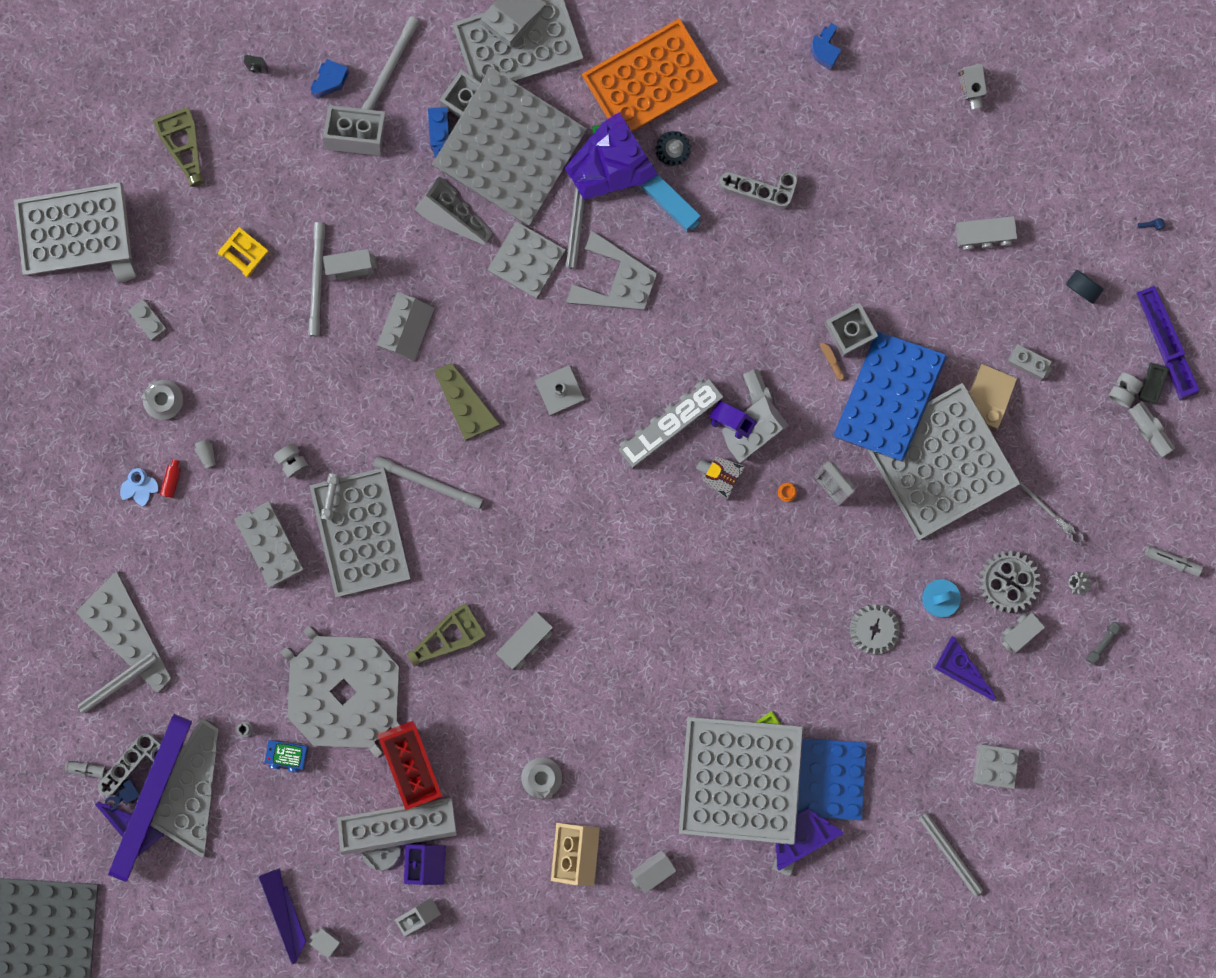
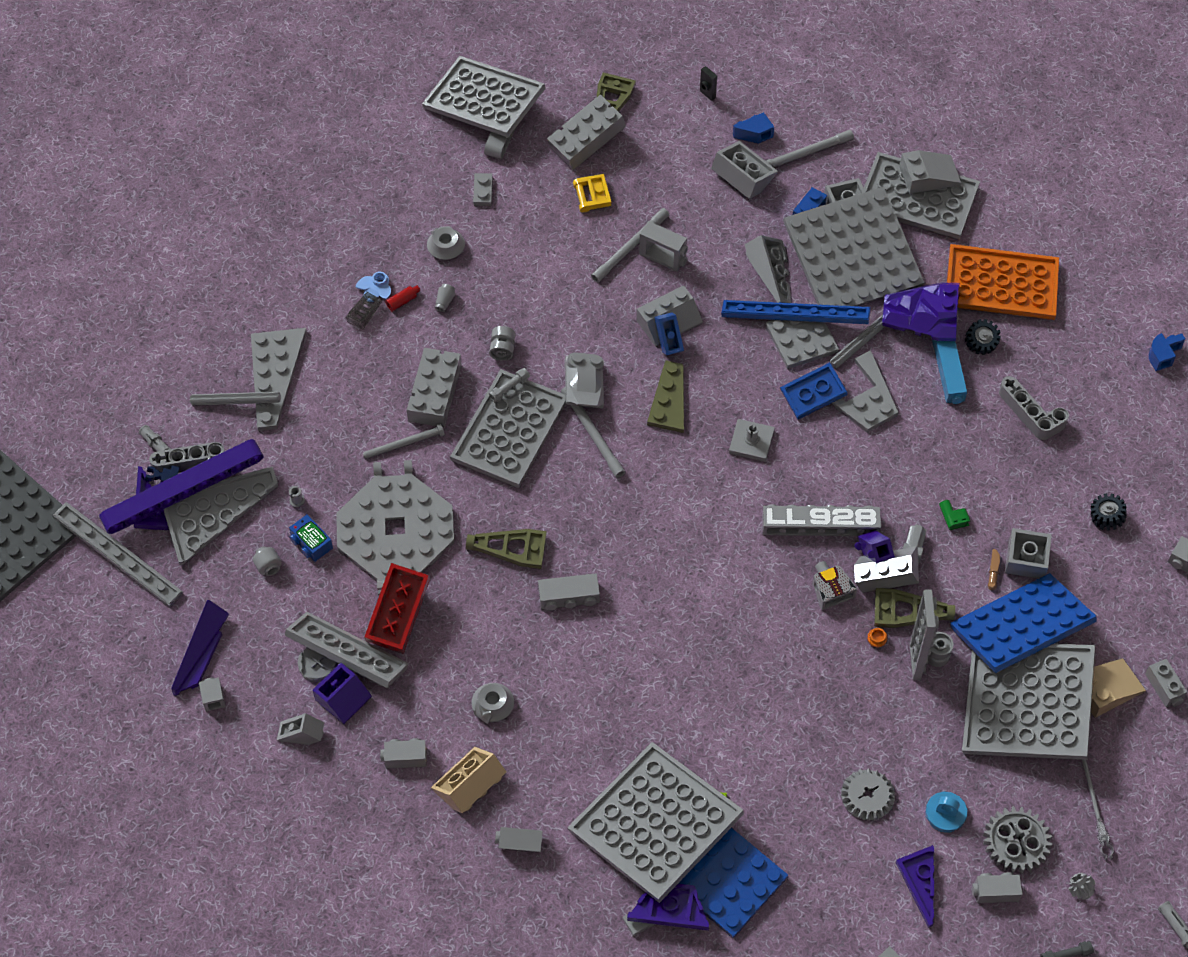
camera: 35 degrees right, 25 degrees down
(143, 525) = (365, 318): none -> clear smoke slope
(146, 889) = (118, 554): none -> light grey tile
(192, 198) = (586, 132): none -> light grey piece
(270, 801) = (267, 561): none -> light grey head
(286, 610) = (405, 441): none -> light grey bar
(387, 445) = (584, 380): none -> light grey slope
(421, 348) = (669, 333): none -> blue brick
(506, 243) = (796, 312): none -> blue tile
(508, 875) = (404, 753): none -> light grey brick
(576, 307) = (813, 391): none -> blue tile
(770, 338) = (954, 518): none -> green piece
(775, 462) = (885, 608): none -> olive plate
(846, 466) = (941, 650): none -> light grey wheel
(885, 240) = (1108, 511): none -> black wheel

